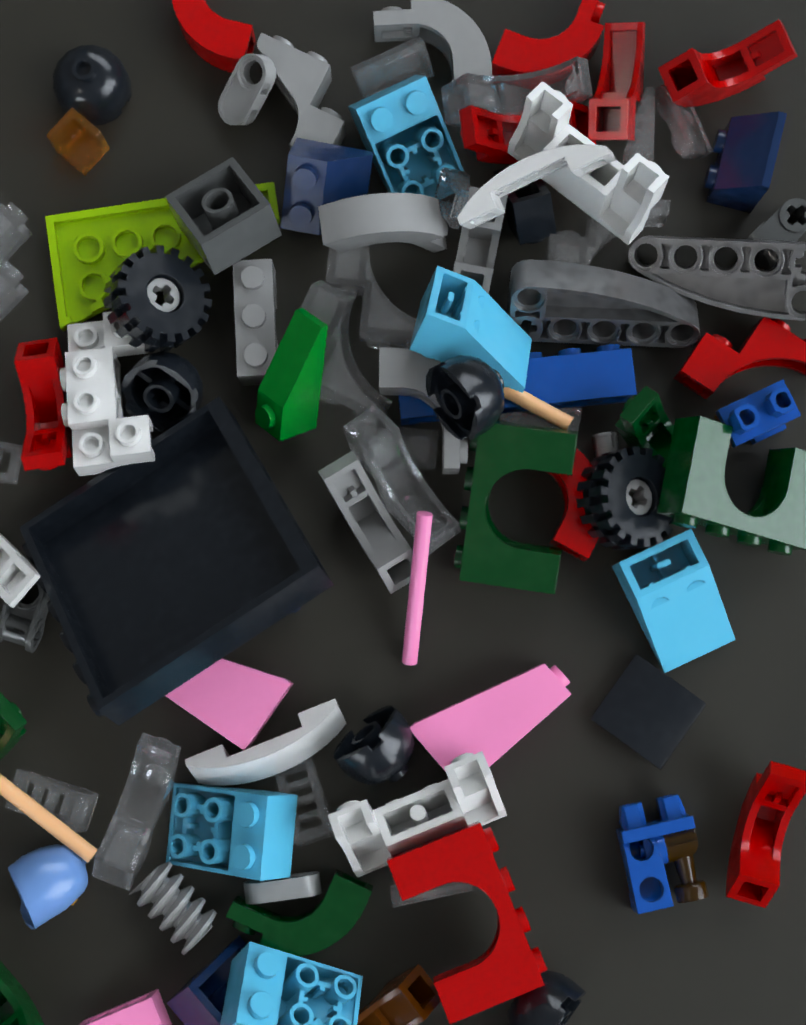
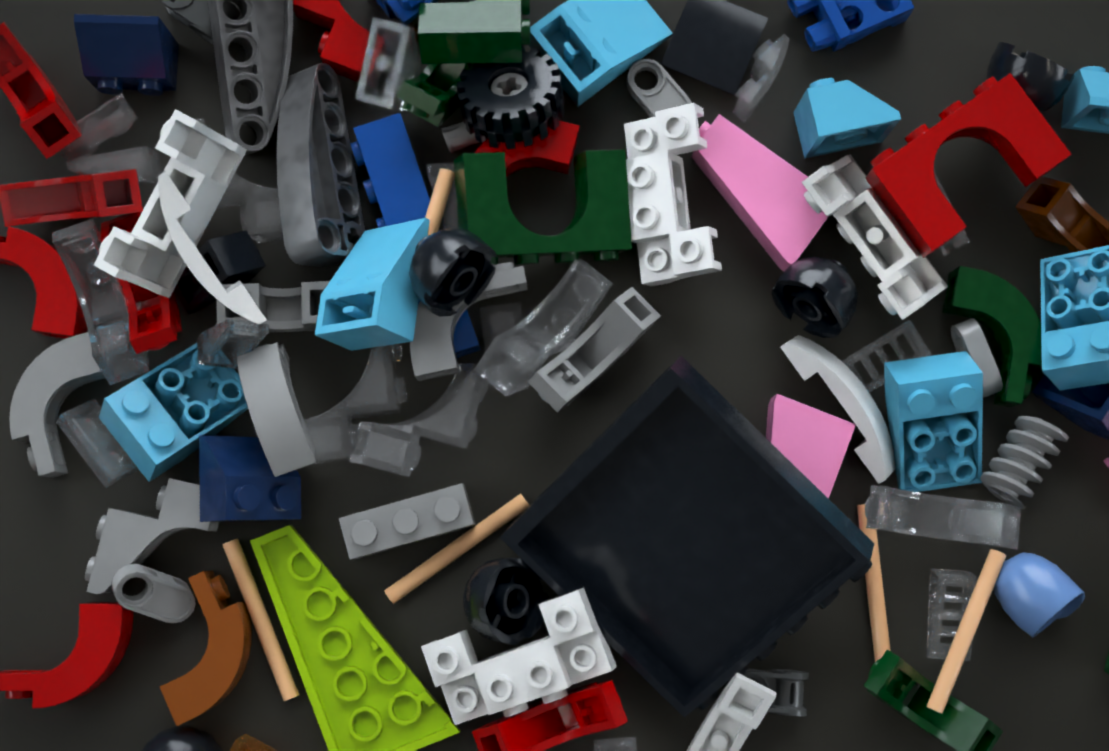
camera: 105 degrees left, 0 degrees up
(83, 733) = (875, 592): none -> light nougat bar
(134, 298) = (421, 647): black bush -> none
(170, 184) = (260, 619): none -> light nougat bar
(179, 142) = (225, 654): none -> dark orange arch
(224, 215) = (304, 577): dark grey brick -> none
(229, 376) = (456, 548): none -> light nougat bar
(293, 380) = (468, 462): green slope -> none
(417, 587) = (649, 288): bright pink bar -> none
(503, 619) = (659, 197): none -> white bracket
(542, 811) = (841, 117): none -> medium azure slope
(599, 650) = (663, 96): none -> light grey piece
(611, 755) = (765, 69): none -> clear slope
(684, 390) = (388, 61): none -> clear slope

